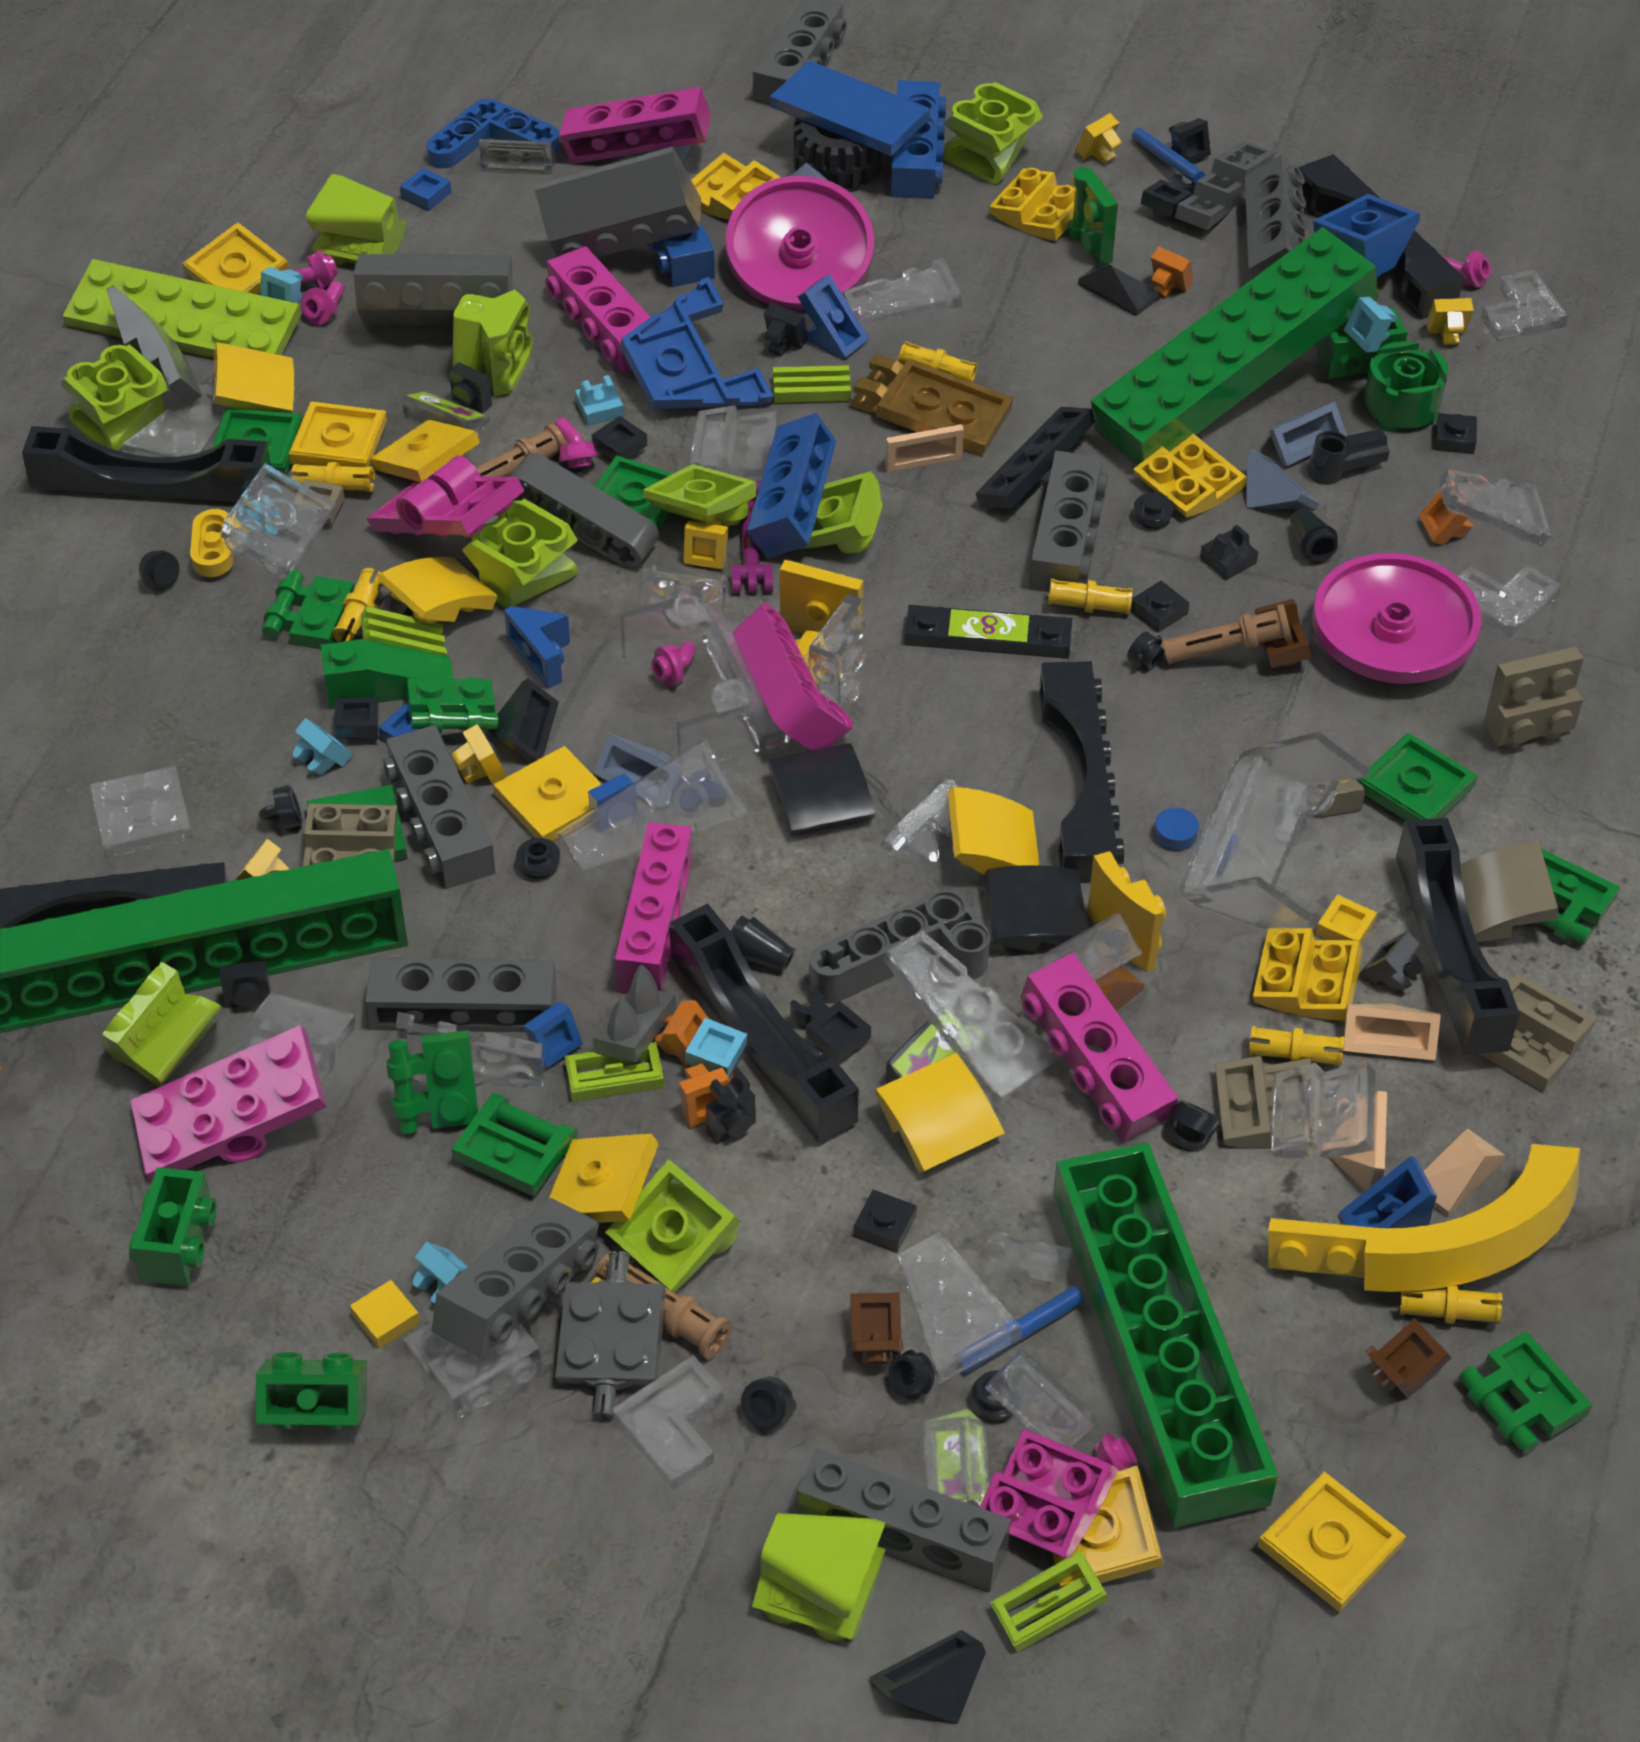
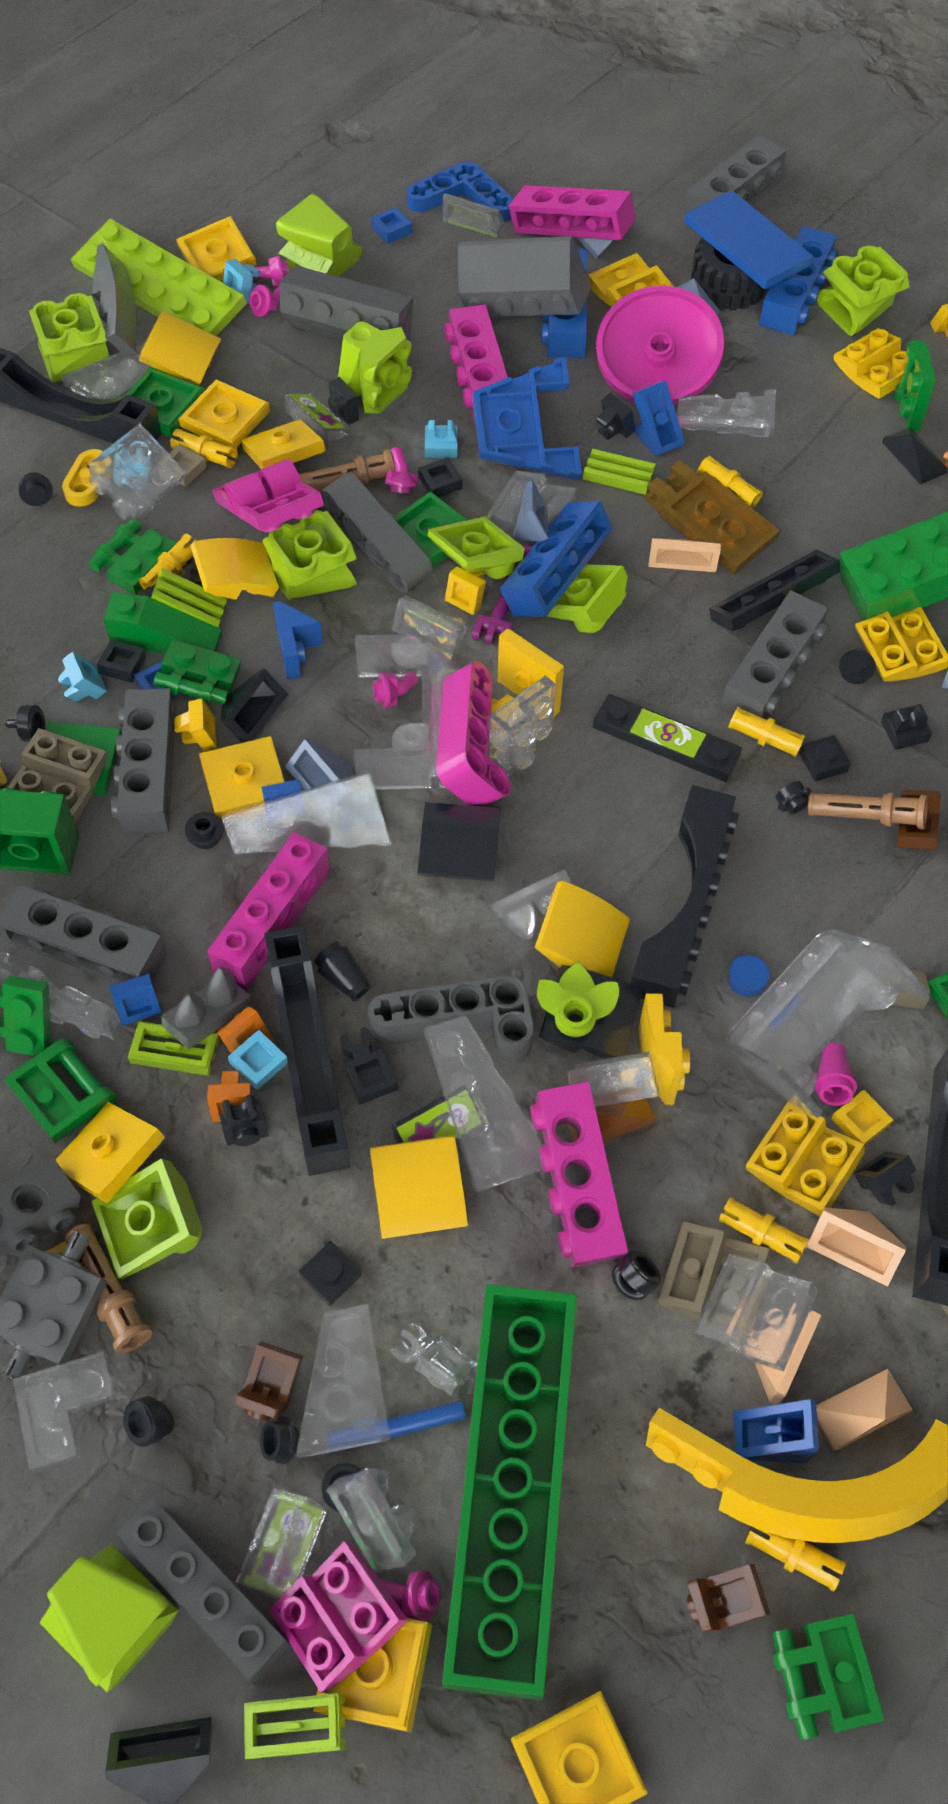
camera: 20 degrees right, 10 degrees up
(744, 454) = (532, 516): none -> sand blue slope
(1017, 890) = (577, 996): none -> lime plate
(1306, 888) = (835, 1077): none -> dark pink cone

